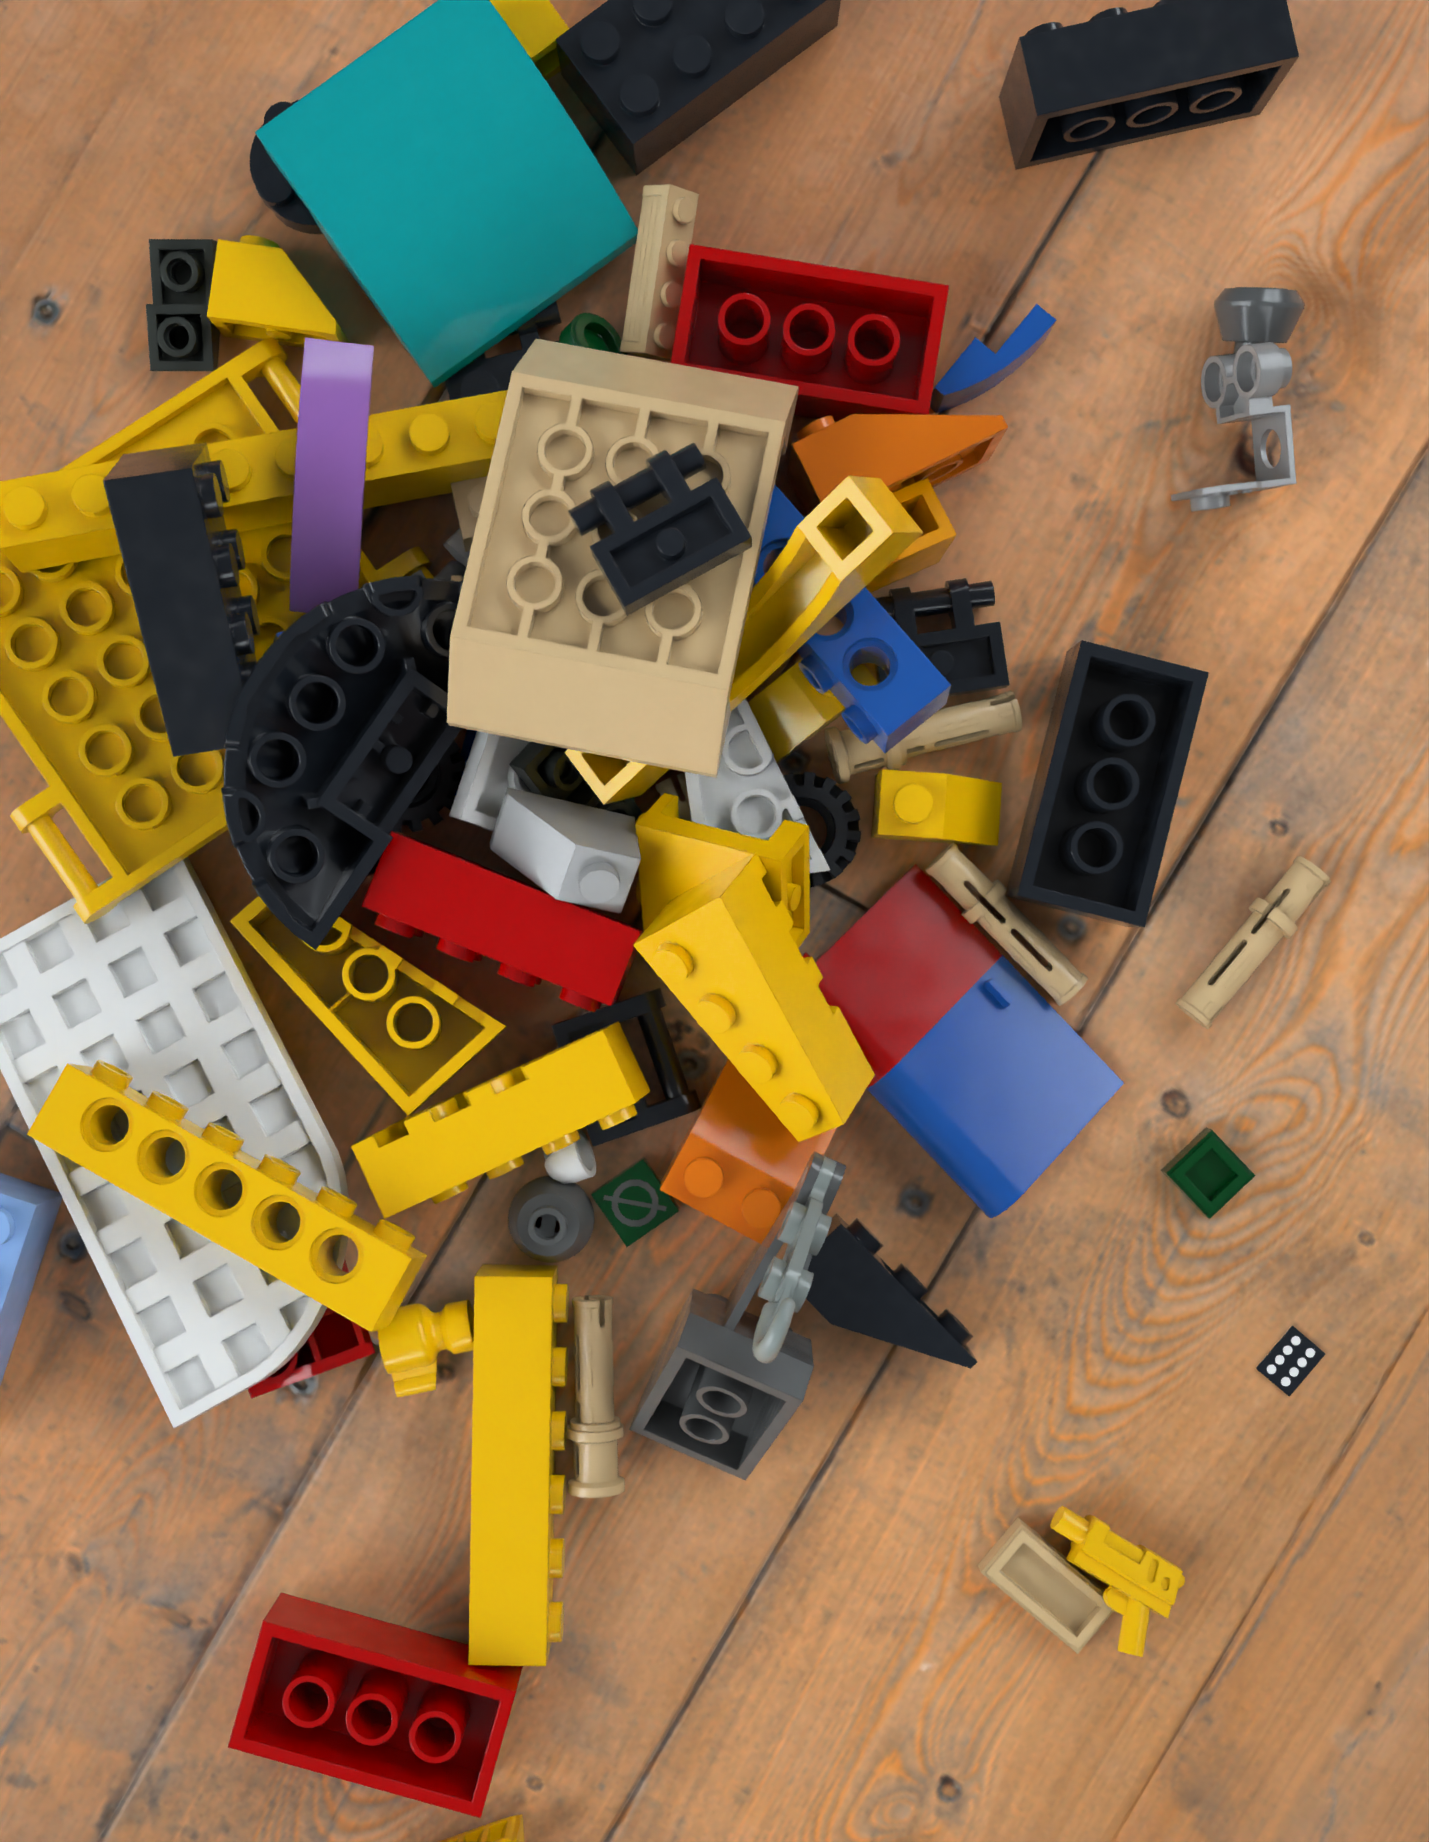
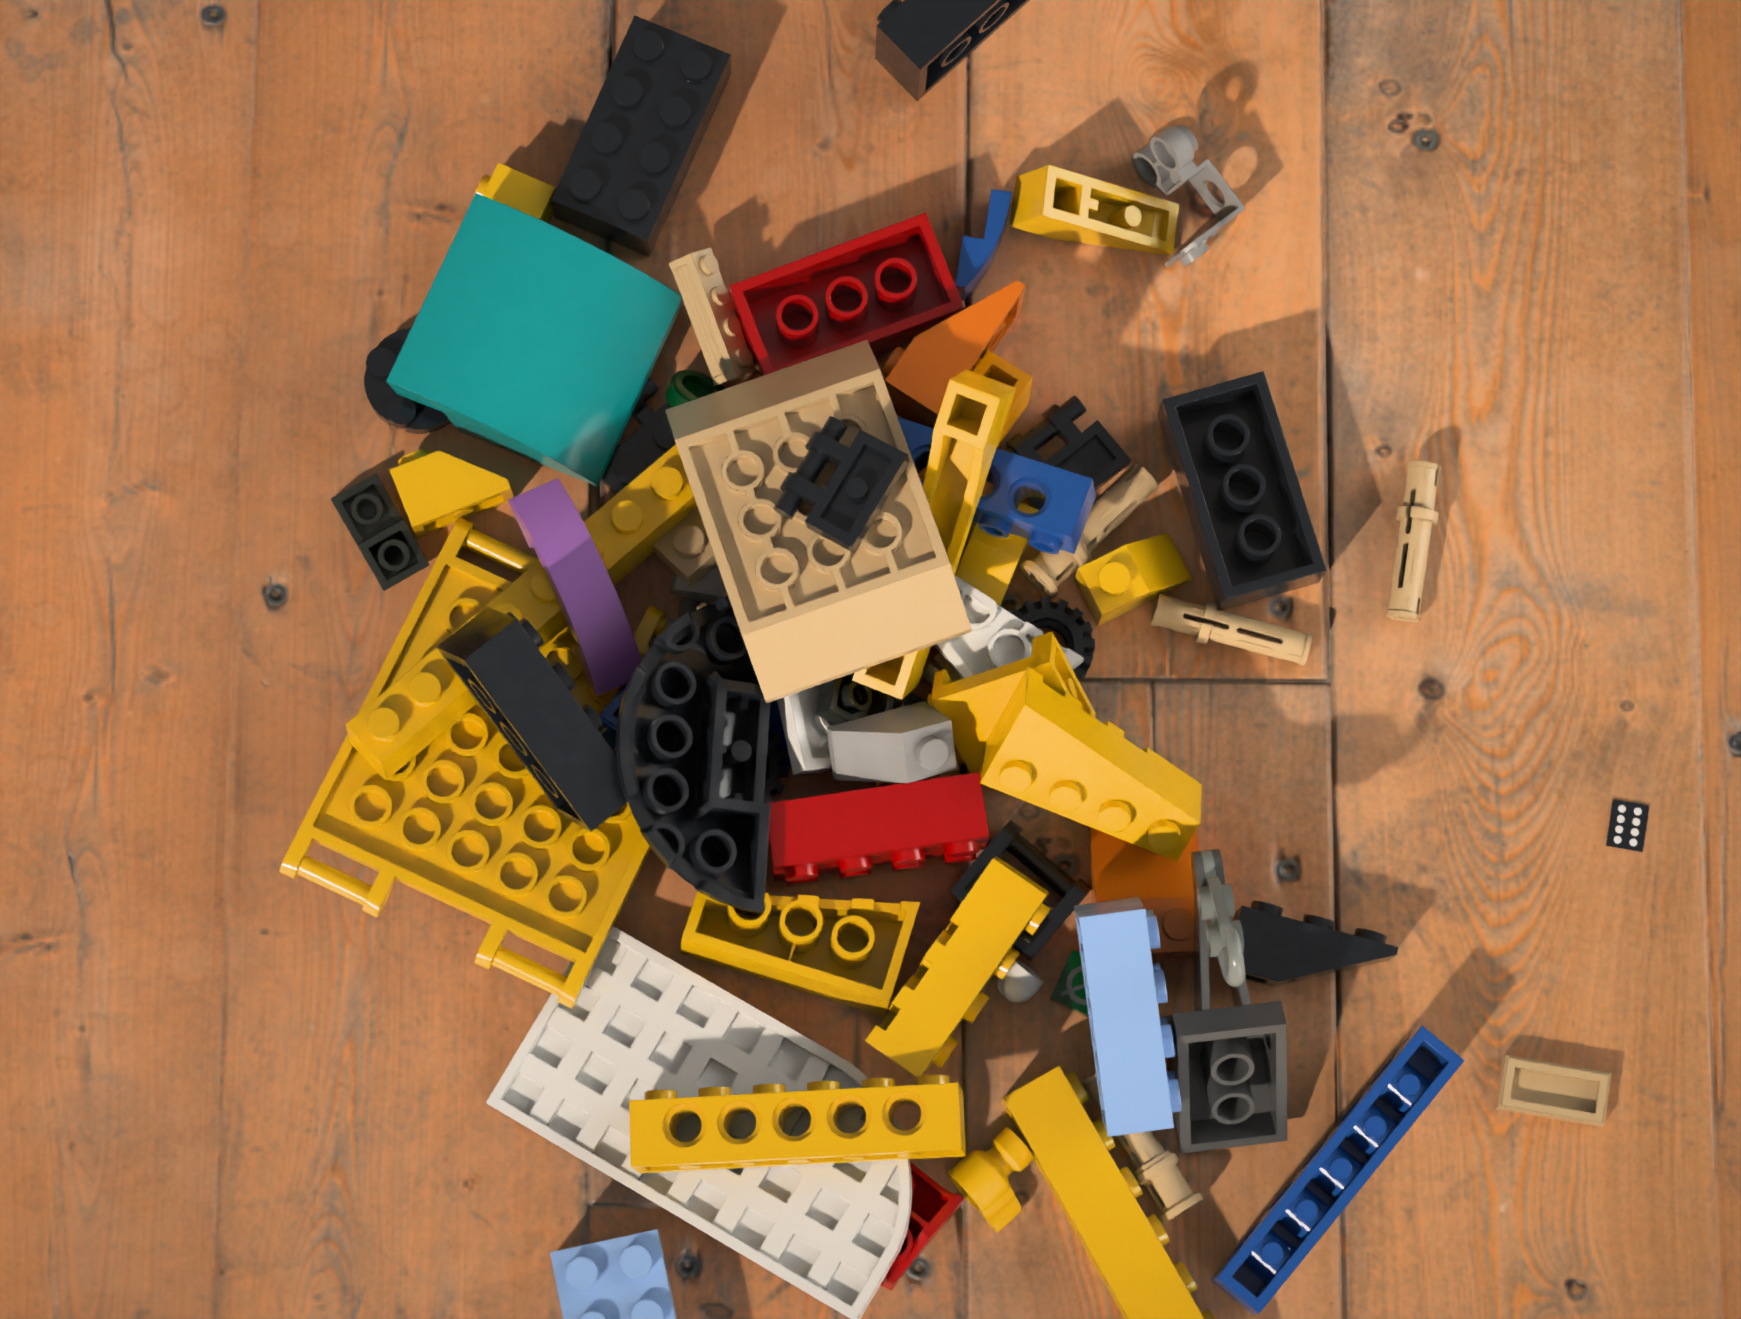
camera: 35 degrees left, 10 degrees down
(553, 1203) = (1039, 1050): dark grey cone -> none
(641, 1285) = (1125, 1018): none -> light blue brick
(773, 1549) = (1337, 1170): none -> blue brick
(961, 1043) = (1252, 732): blue door -> none
(1128, 392) = (1092, 212): none -> yellow slope
(1135, 1575) = (1610, 1043): yellow piece -> none
(1208, 1172) = (1483, 724): dark green tile -> none
(1257, 314) = (1149, 109): dark grey cone -> none

